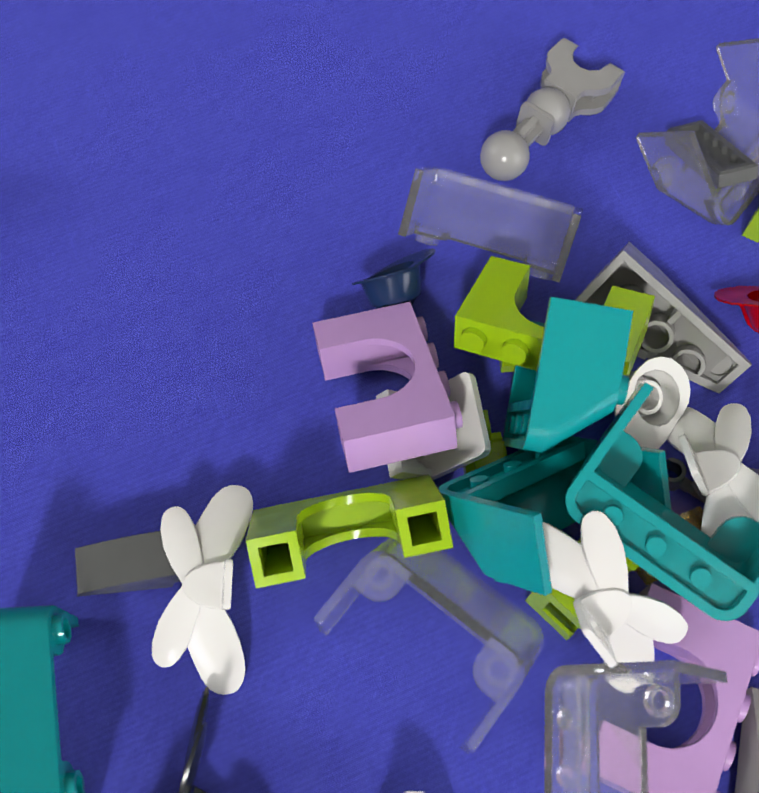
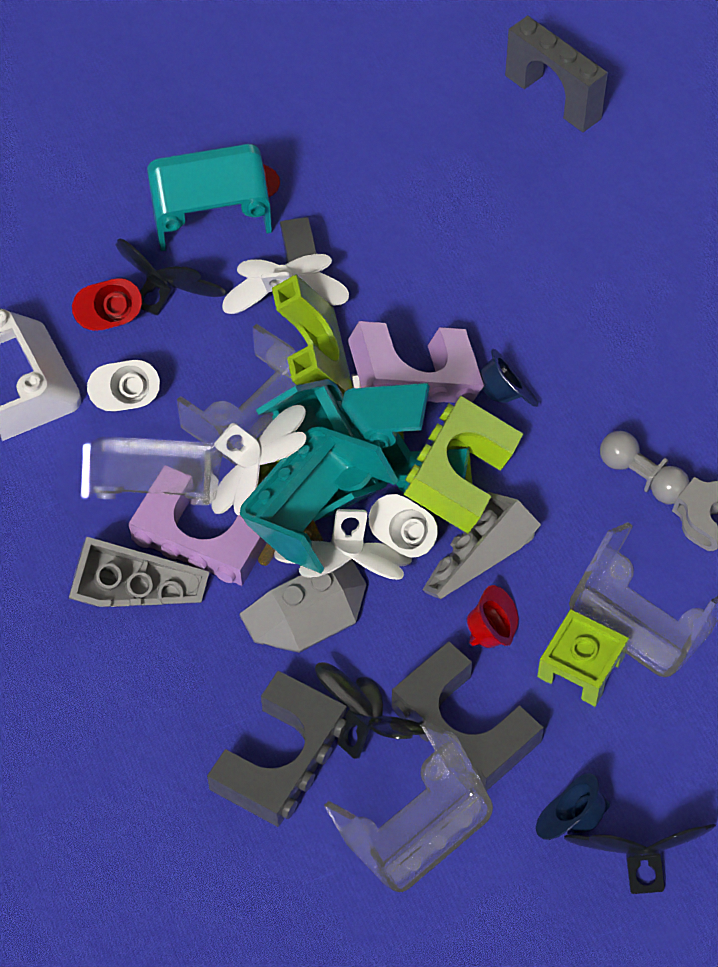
camera: 90 degrees right, 10 degrees down
(491, 218) = (572, 447): clear windscreen -> none
(724, 160) = (629, 590): dark grey plate -> none

